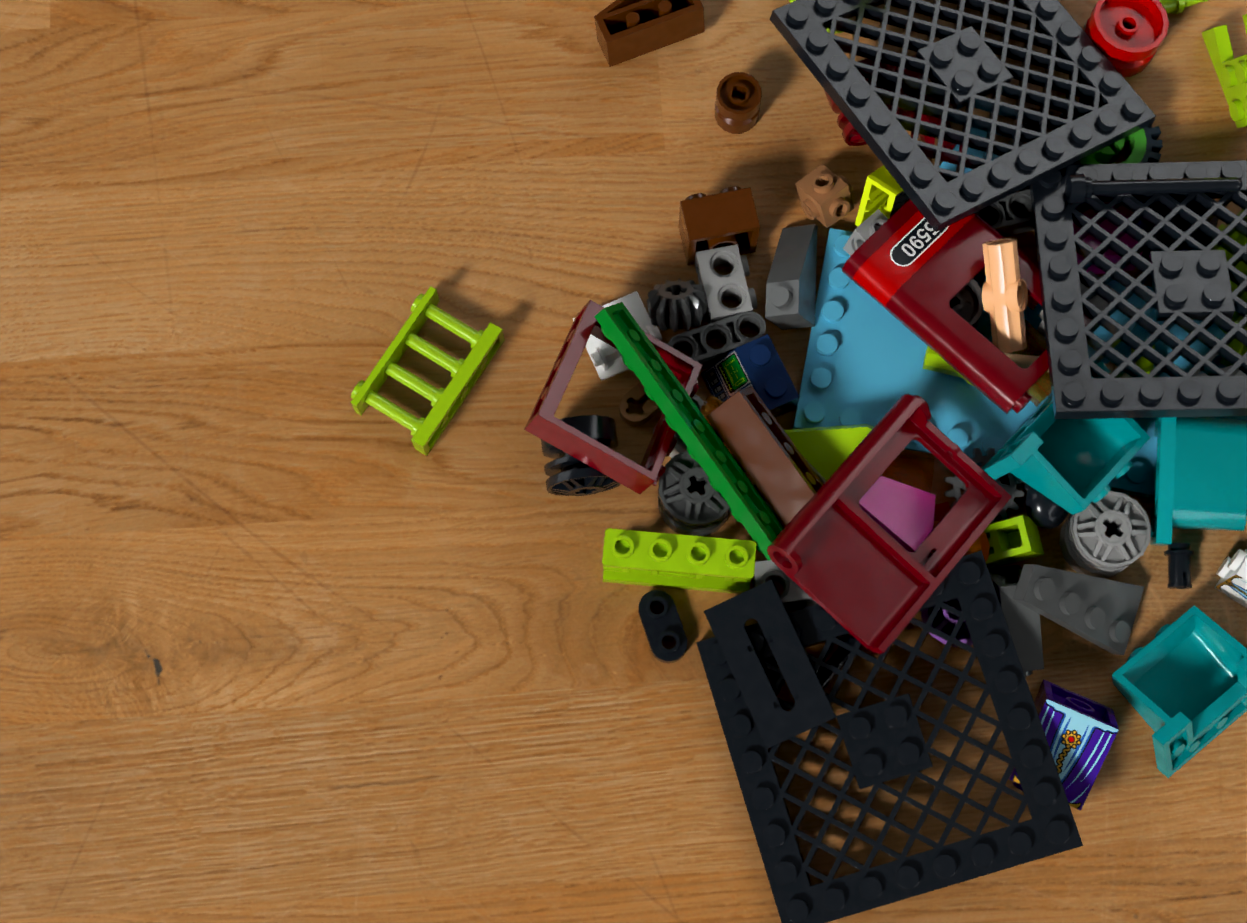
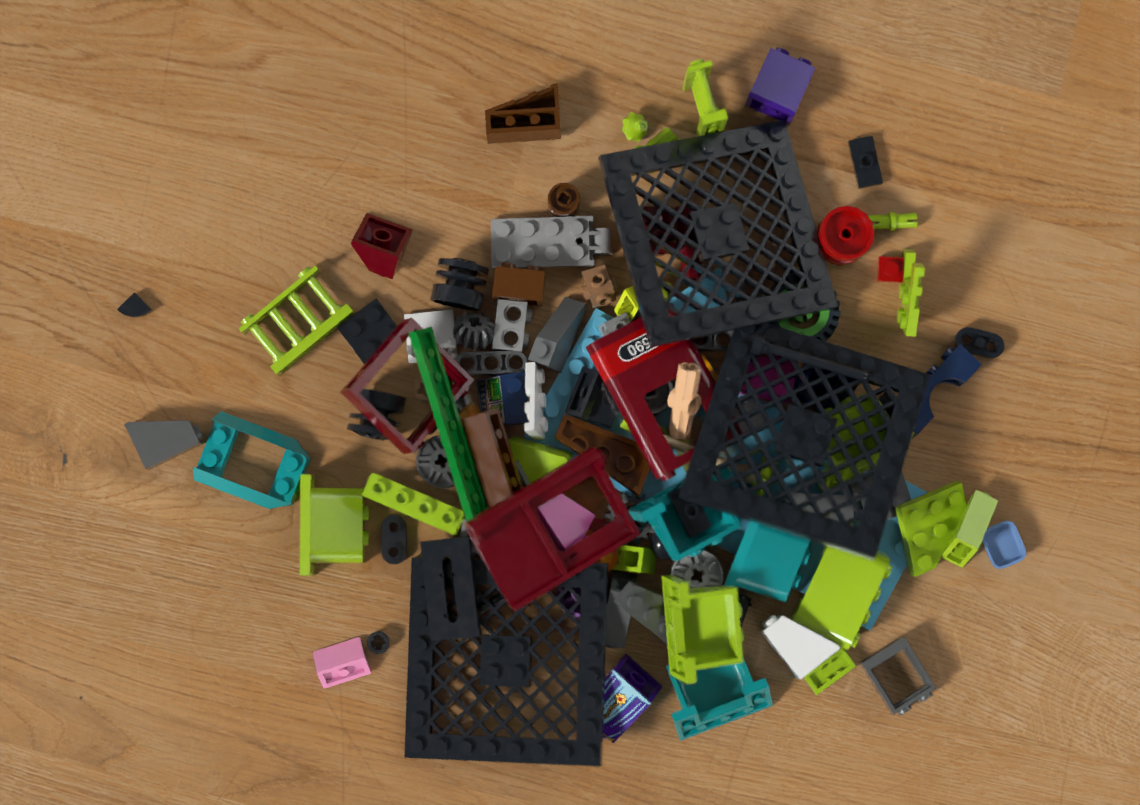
camera: 15 degrees right, 10 degrees up
(196, 425) = (134, 307): none -> black tile
(291, 591) = (163, 440): none -> dark grey slope
(374, 584) = (219, 448): none -> teal wedge
(512, 236) = (381, 244): none -> dark red slope
(528, 353) = (367, 329): none -> black plate
(570, 632) = (331, 525): none -> lime windscreen
(637, 248) = (459, 284): none -> black wheel
(647, 826) = (341, 662): none -> bright pink panel
(701, 781) = (372, 637): none -> black bush
(737, 158) = (548, 241): none -> light grey hinge
(797, 368) = (534, 408): none -> white wing
(859, 337) = (584, 393): none -> black plate
(891, 345) = (604, 408): none -> black plate
(954, 404) = (624, 458): none -> reddish brown wing
(1068, 442) = (689, 514): none -> black plate
(1148, 595) = (701, 627): none -> lime windscreen
(1196, 61) = (890, 269): none -> red plate

